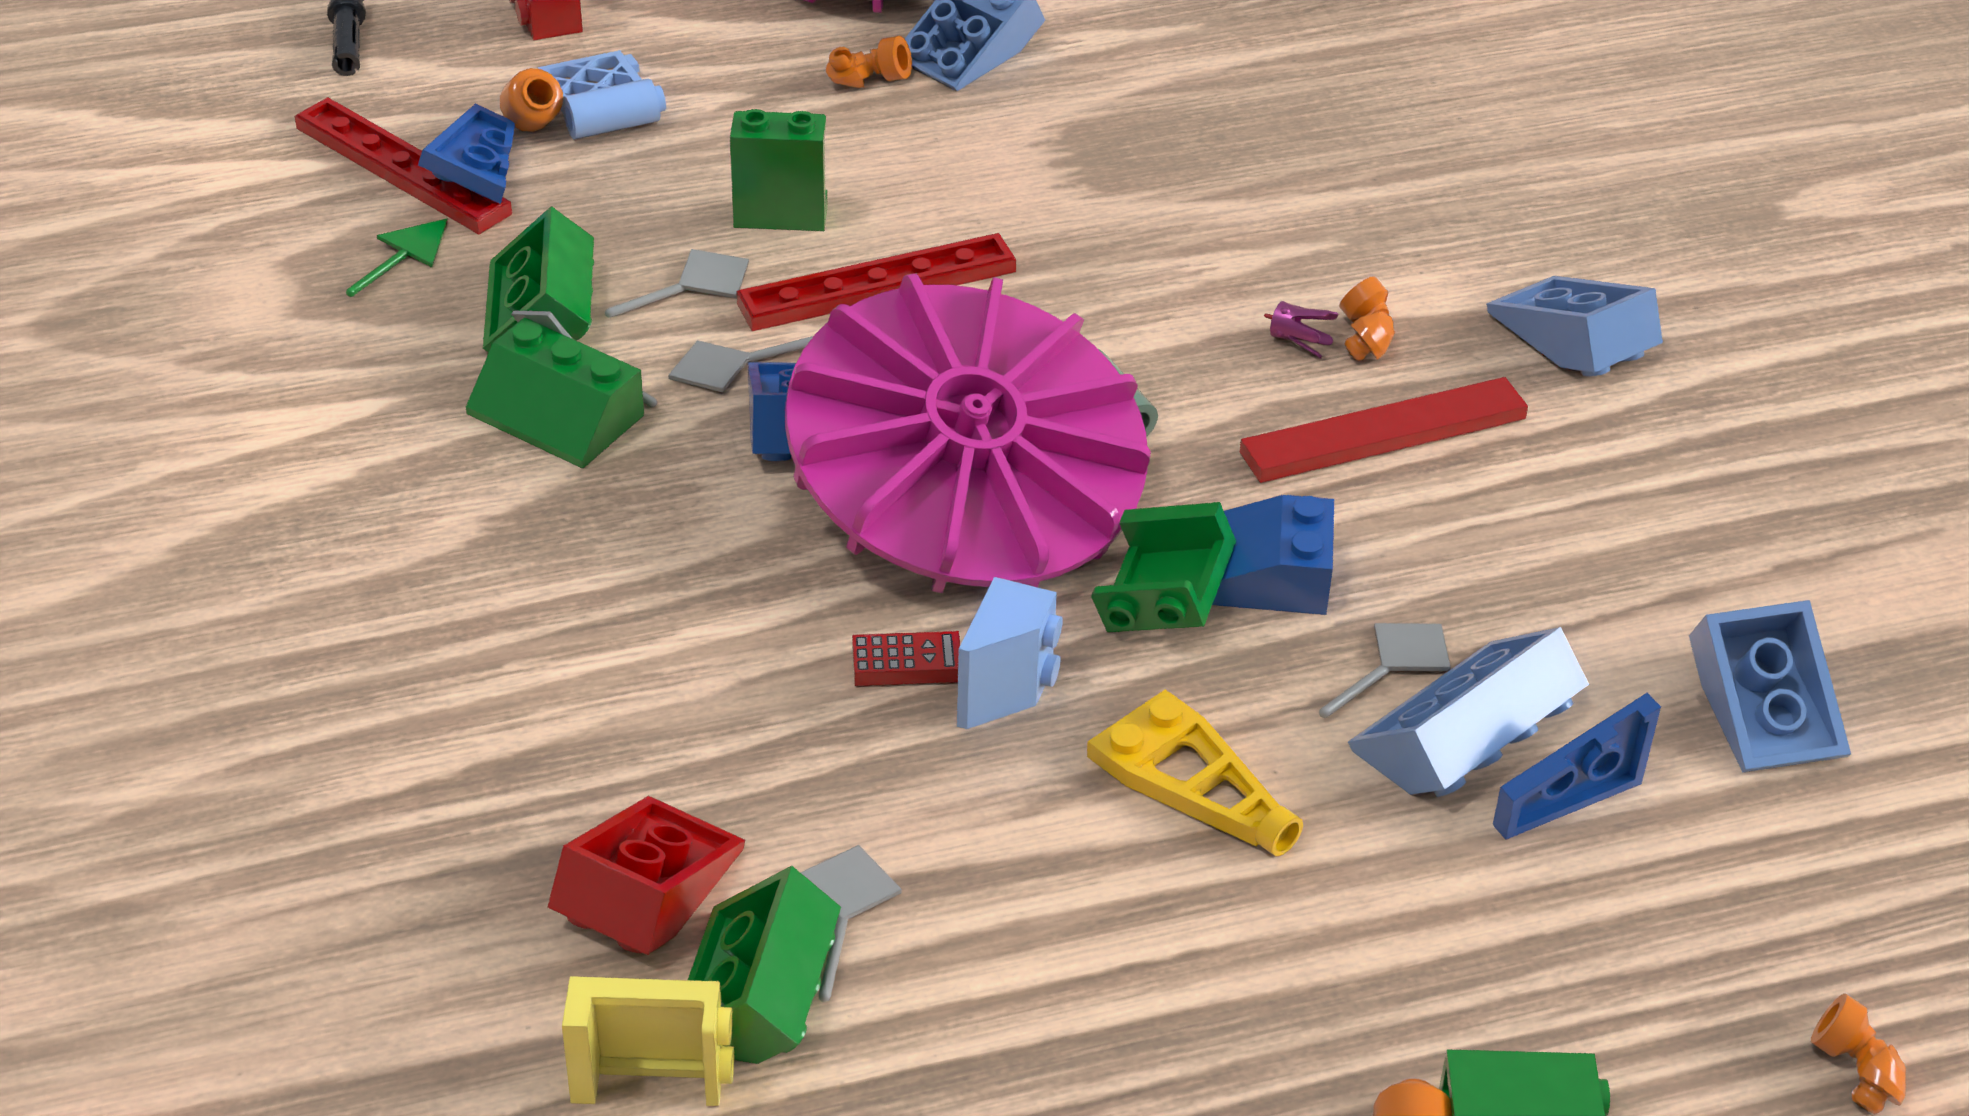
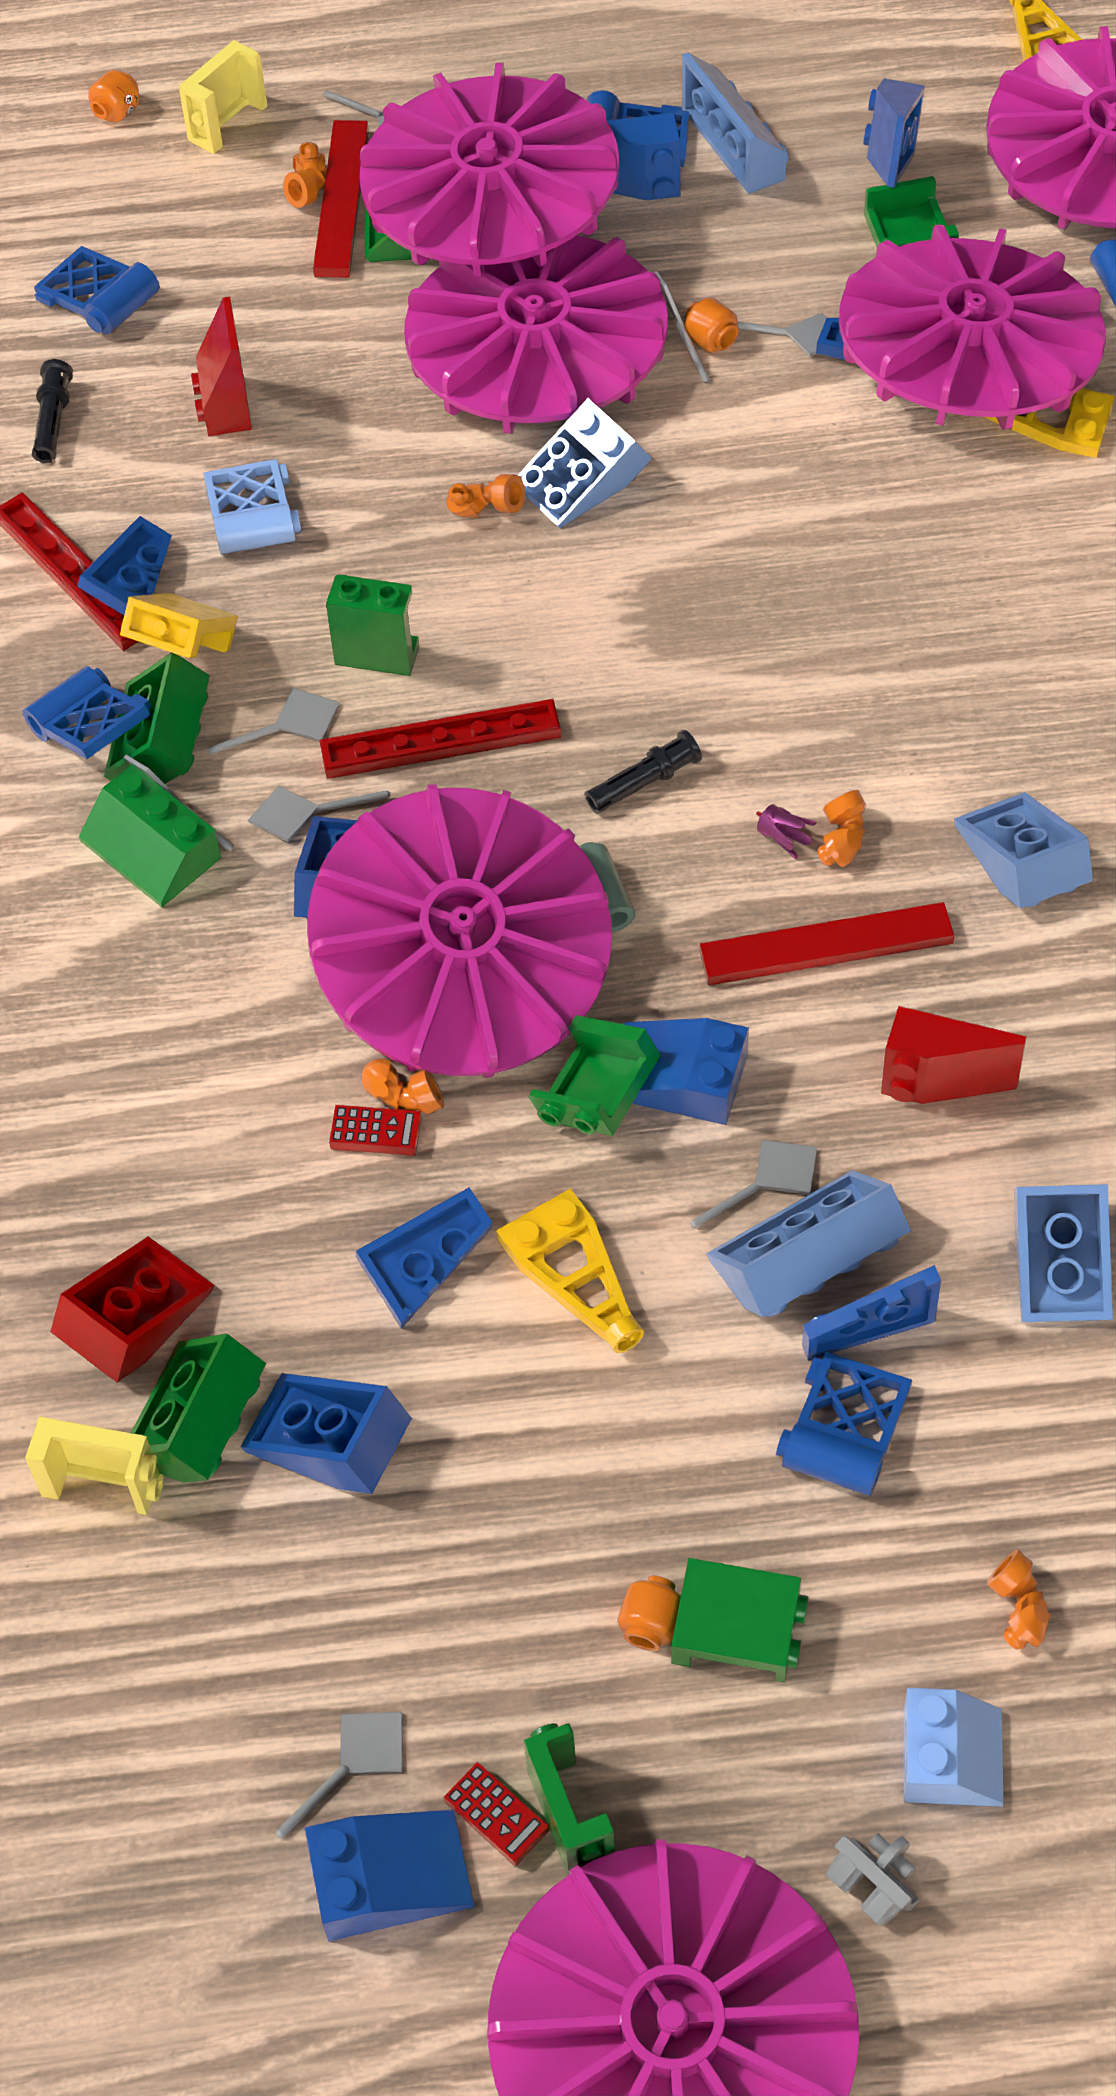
camera: 15 degrees right, 15 degrees up
(416, 241) = (66, 656): green piece -> none
(449, 280) = (77, 702): none -> blue piece
(531, 99) = (186, 516): orange head -> none
(550, 181) = (177, 624): none -> yellow panel
(856, 886) = (282, 1337): light grey piece -> none
(905, 606) = (421, 1093): none -> orange arm
(940, 973) = (329, 1430): none -> blue slope
(1003, 774) = (423, 1253): none -> blue wing
(1007, 653) = (444, 1147): light blue slope -> none
(1139, 281) = (658, 764): none -> black pin
(1573, 509) = (948, 1058): none -> red slope
(1578, 921) = (829, 1450): none -> blue piece

